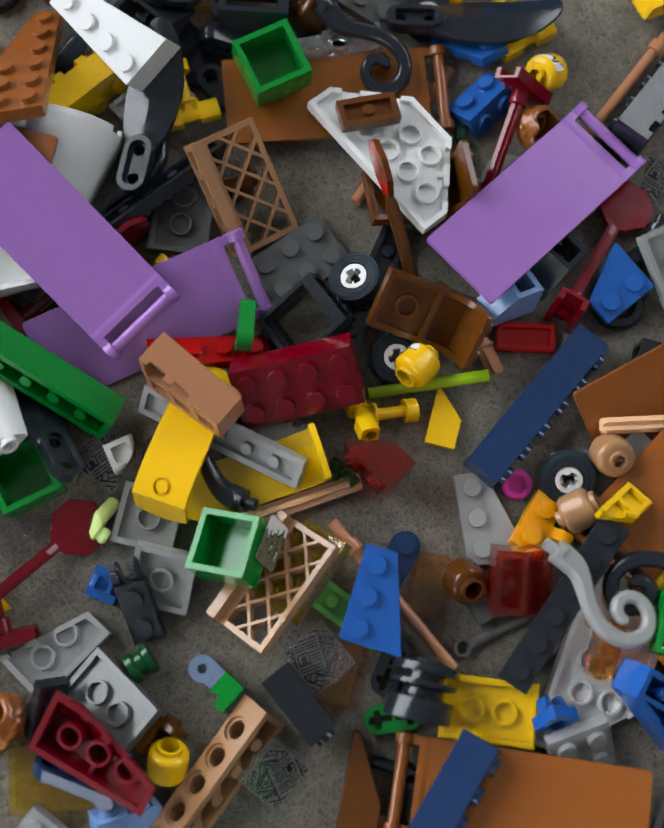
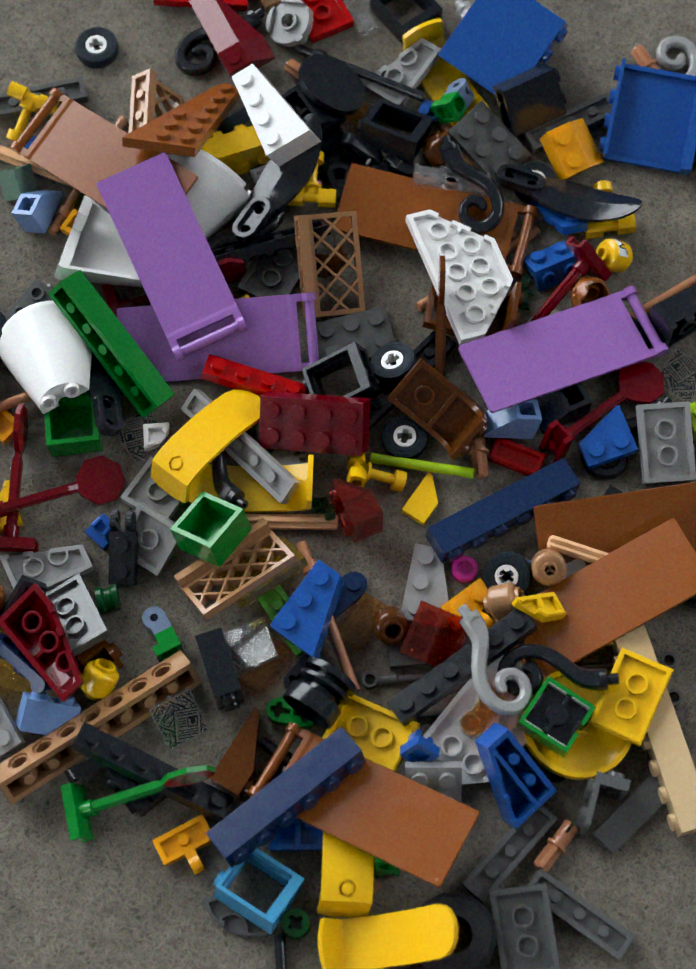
camera: 25 degrees right, 10 degrees down
(101, 516) = (118, 479): yellowish green arm -> none
(190, 385) = (227, 394): nougat wedge -> none
(245, 325) = (290, 368): green beam -> none
(271, 63) = (388, 176): green piece -> none
(271, 543) = (245, 537): sticker -> none
(368, 112) = (451, 236): reddish brown plate -> none
(417, 365) = (416, 445): yellow head -> none

